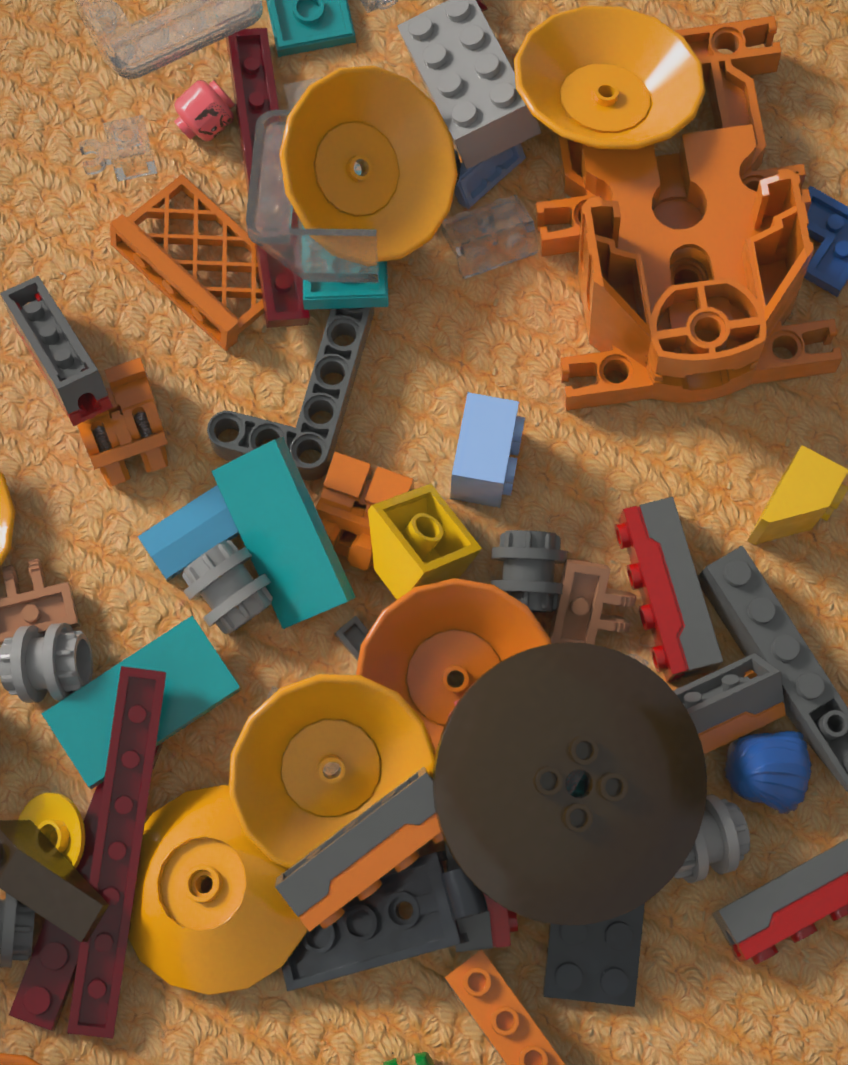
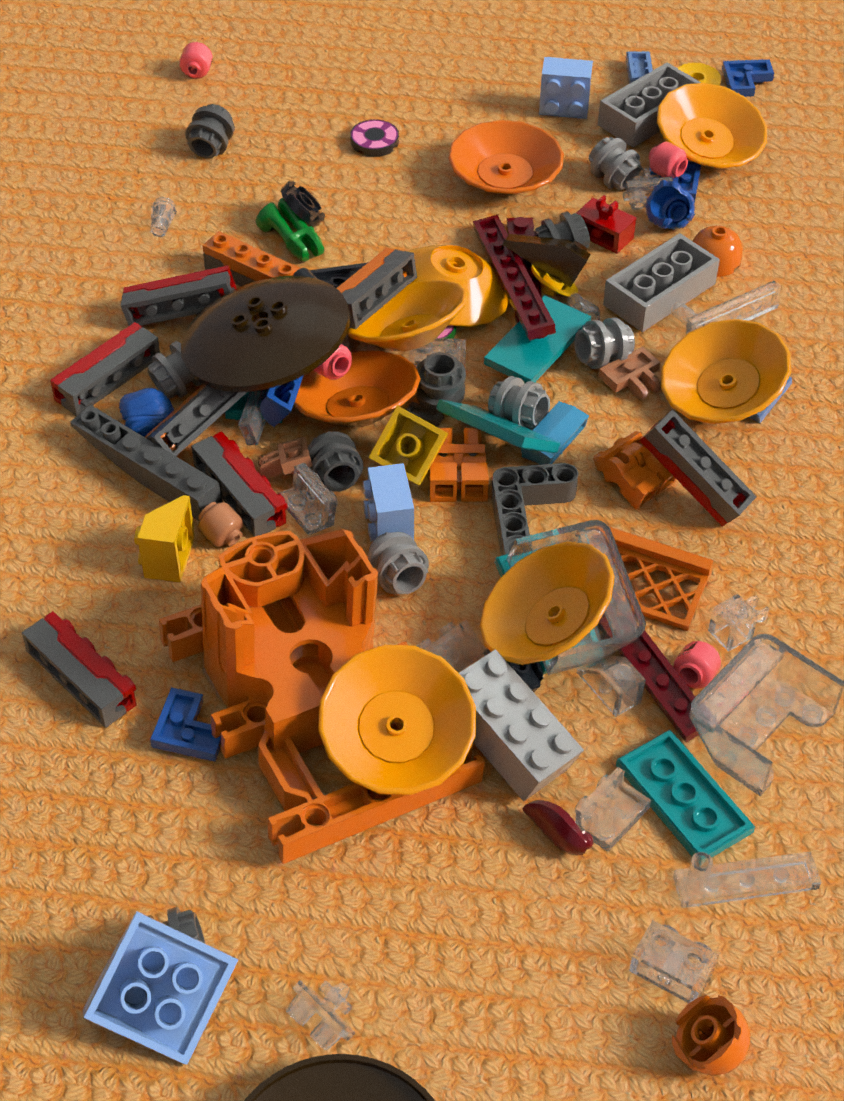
camera: 160 degrees right, 25 degrees down
(37, 761) = (582, 304): none -> clear cone
(320, 636) = (441, 379): none -> dark grey piece
(505, 365) = (399, 562): none -> light grey piece
(588, 515) = (310, 501): none -> clear bracket
(662, 996) = (175, 295): none -> dark grey piece
(713, 524) = (220, 524): none -> nougat head

